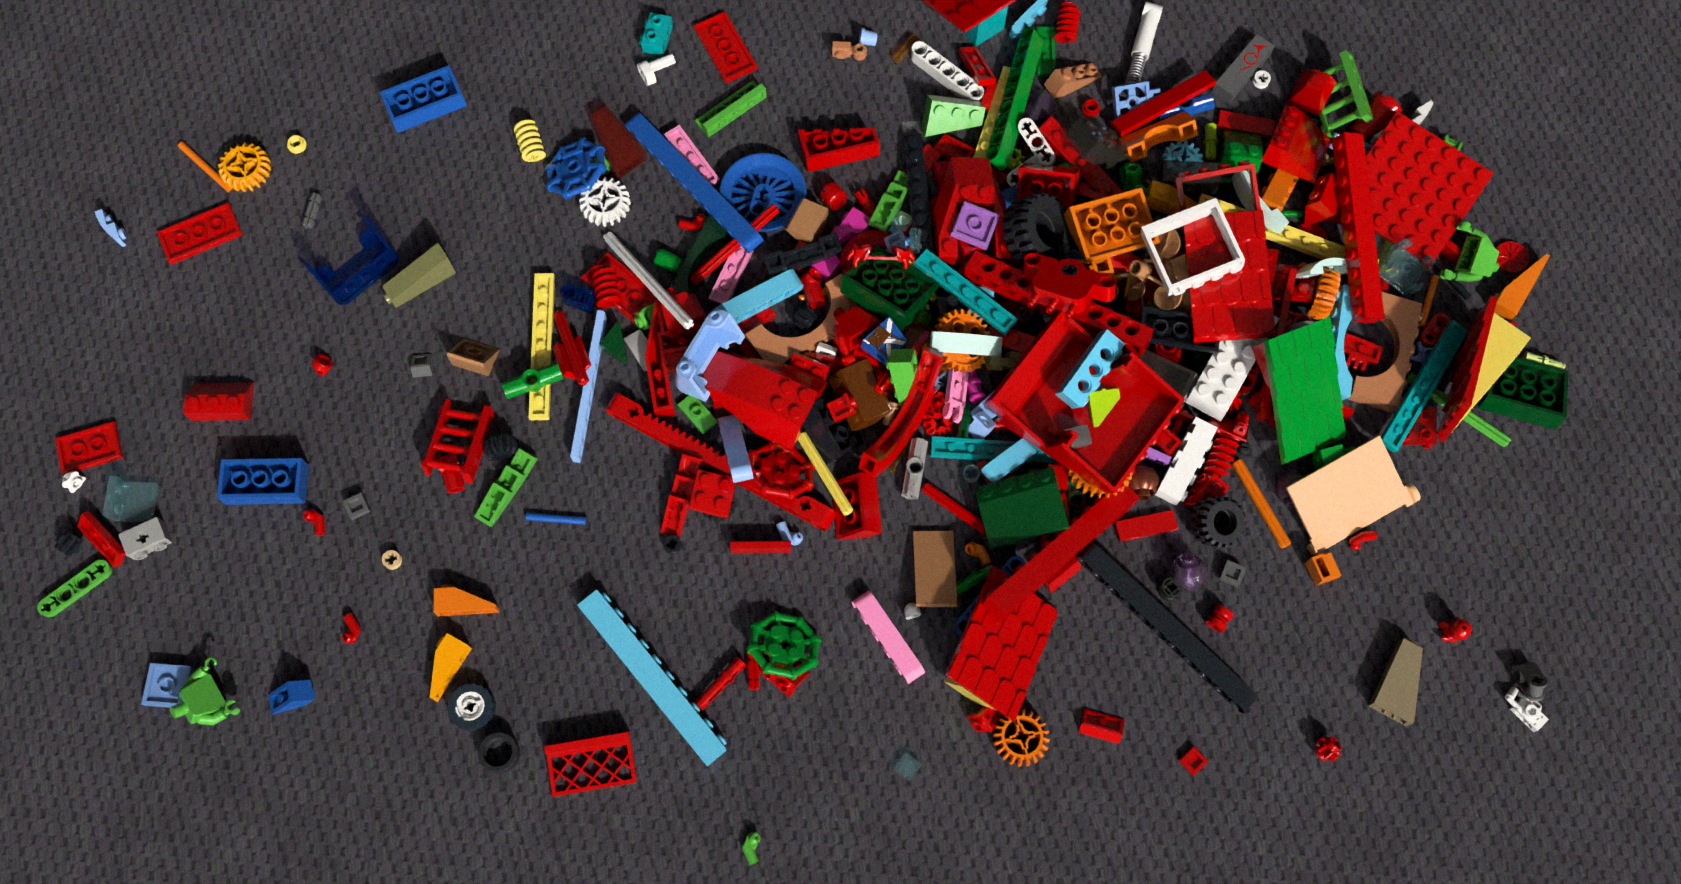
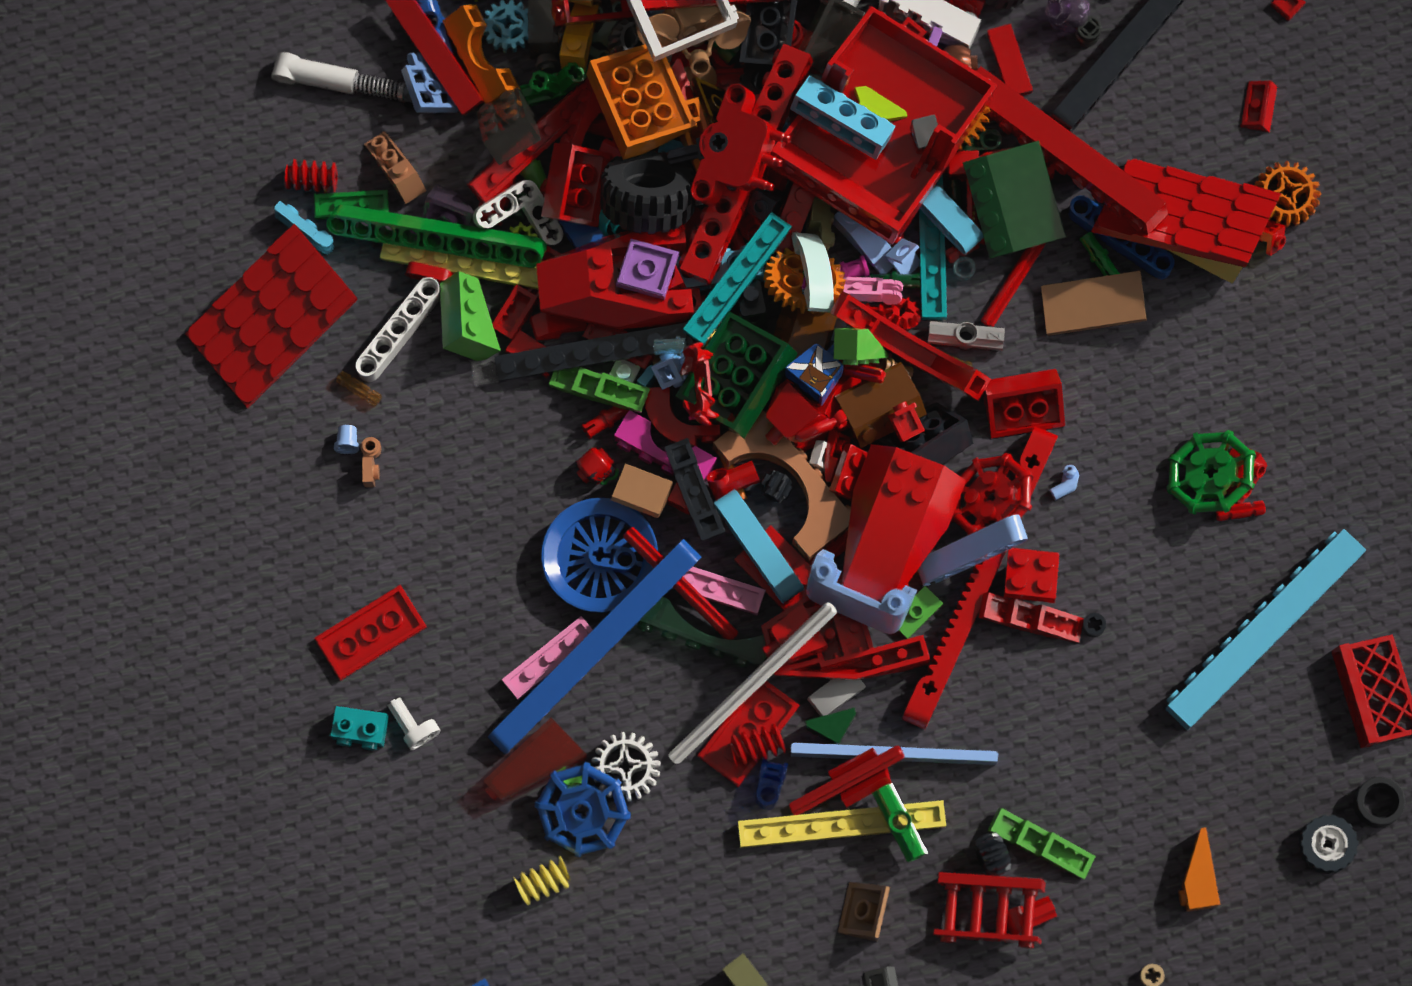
camera: 90 degrees left, 5 degrees up
(447, 661) = (1275, 881): light orange slope -> none
(556, 518) = (1074, 773): blue bar -> none
(644, 316) = (790, 690): bright green bracket -> none
(667, 260) = (706, 672): green piece -> none
(692, 225) = (648, 645): red arm -> none
(720, 683) = (1262, 547): red pin -> none
(732, 110) = (474, 607): bright green fence -> none
(760, 547) = (1087, 514): red tile -> none
(825, 474) = (993, 437): light yellow axle -> none
(837, 147) = (524, 470): red wedge -> none
(888, 635) = (1182, 352): bright pink beam -> none
(907, 767) = (1335, 322): clear light blue tile -> none
(911, 611) = (1147, 329): white hinge -> none
(921, 342) = (816, 330): red tile -> none
(977, 66) = (387, 289): red plate -> none
(978, 551) = (1063, 253): orange arm -> none
(1091, 103) = (436, 135): red plate -> none

